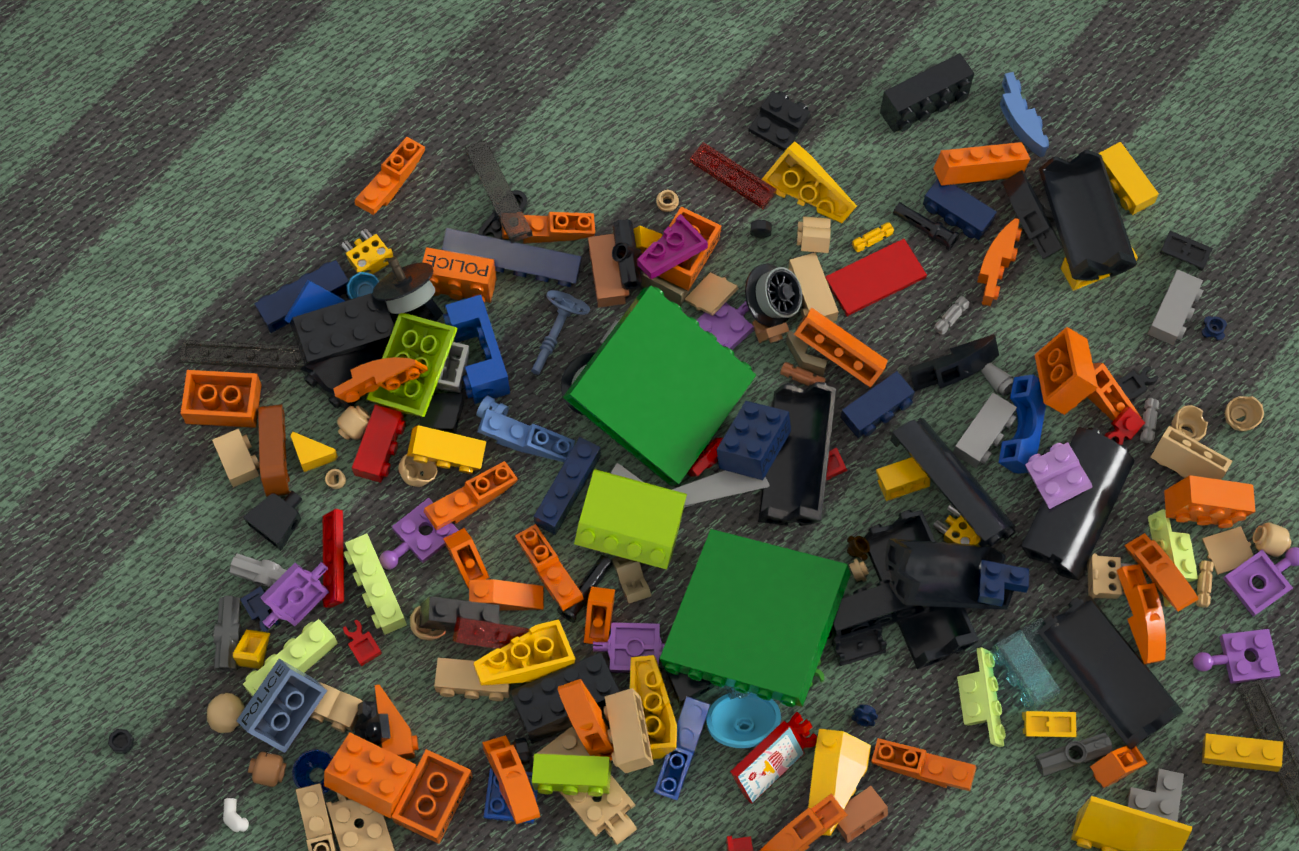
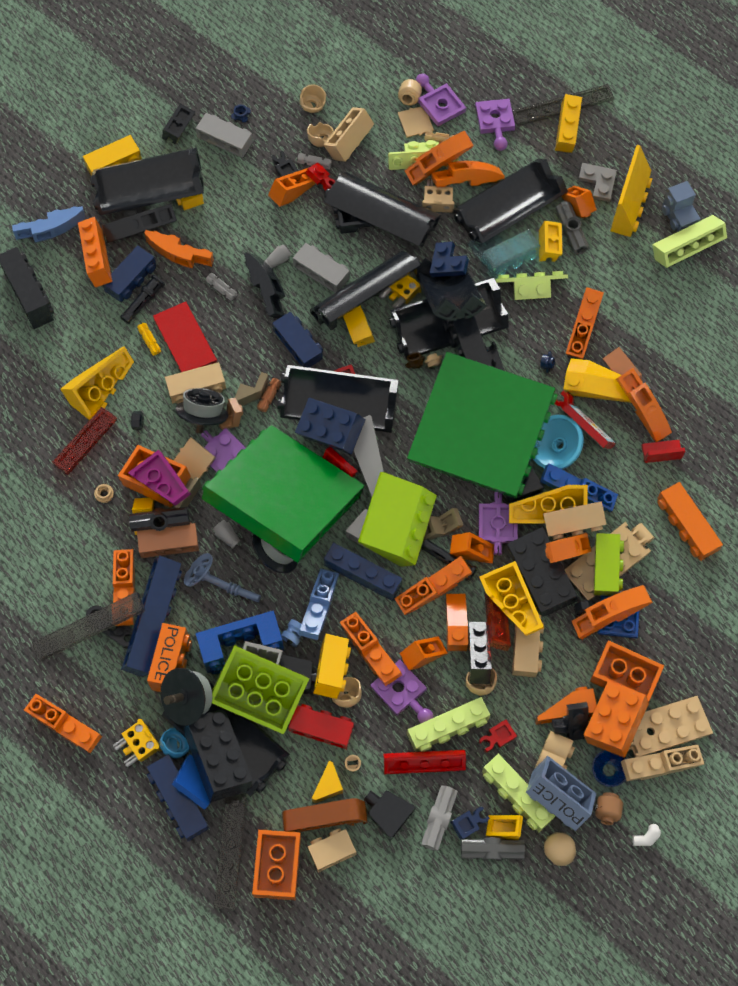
camera: 90 degrees left, 0 degrees up
(121, 741) = (588, 937): black tile -> none
(294, 594) = (462, 789): medium lavender plate -> none
(353, 422) = (301, 748): tan head -> none
(383, 372) = (268, 709): orange slope -> none
(780, 120) = (35, 403): black plate -> none
(814, 234) = (148, 377): tan brick -> none
(841, 347) = (251, 360): orange brick -> none
(1028, 399) = (333, 242): blue arch -> none
(1058, 474) = (365, 215): lavender plate -> none
(1066, 371) = (281, 203): orange brick -> none
(1209, 501) = (387, 122): orange brick -> none

